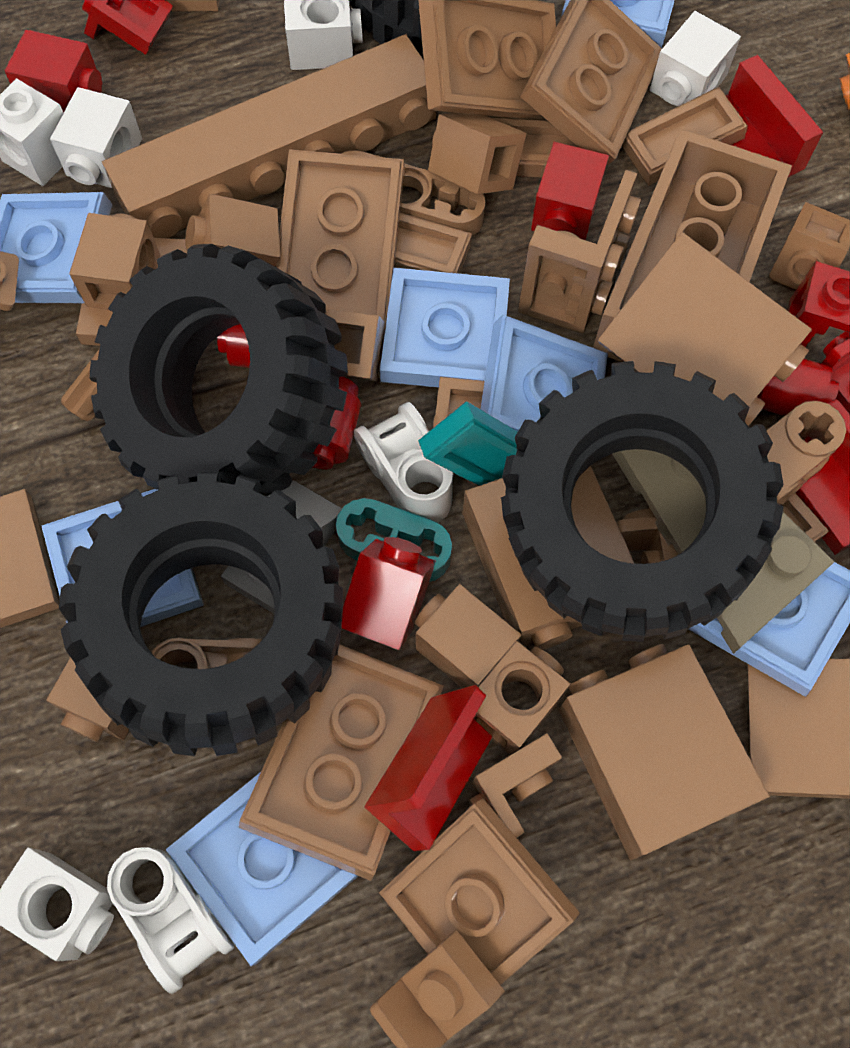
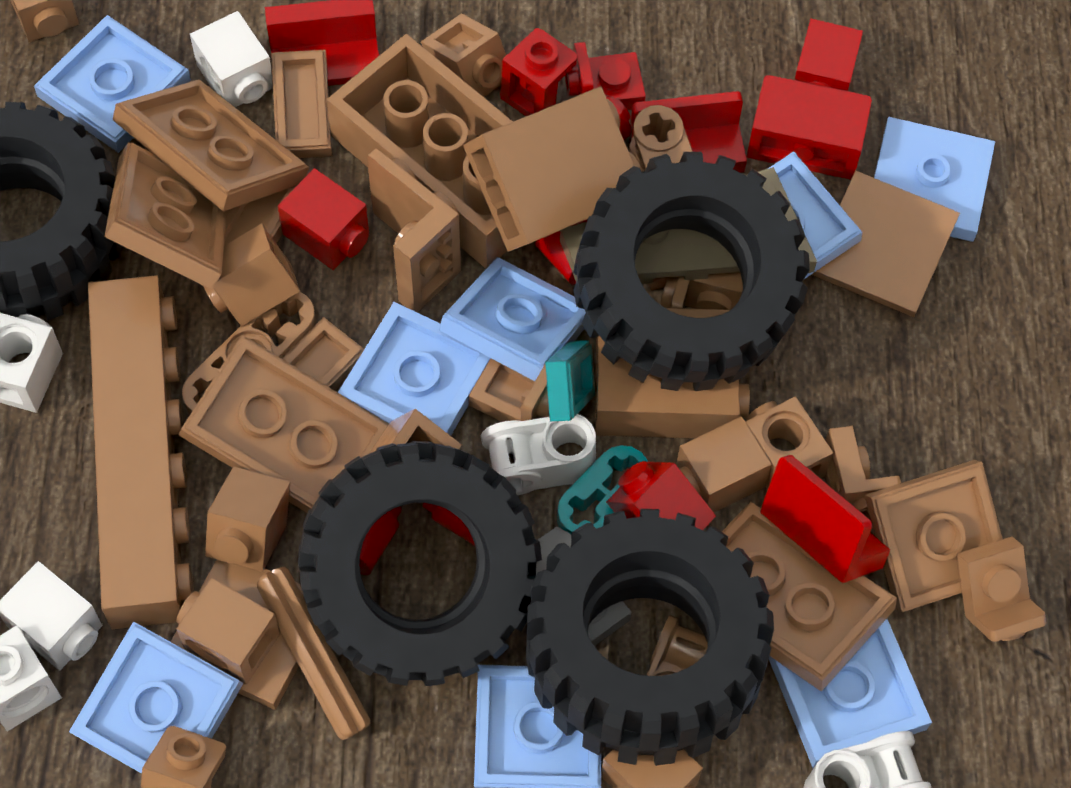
camera: 70 degrees left, 5 degrees down
(659, 749) = (865, 361): medium nougat brick -> none

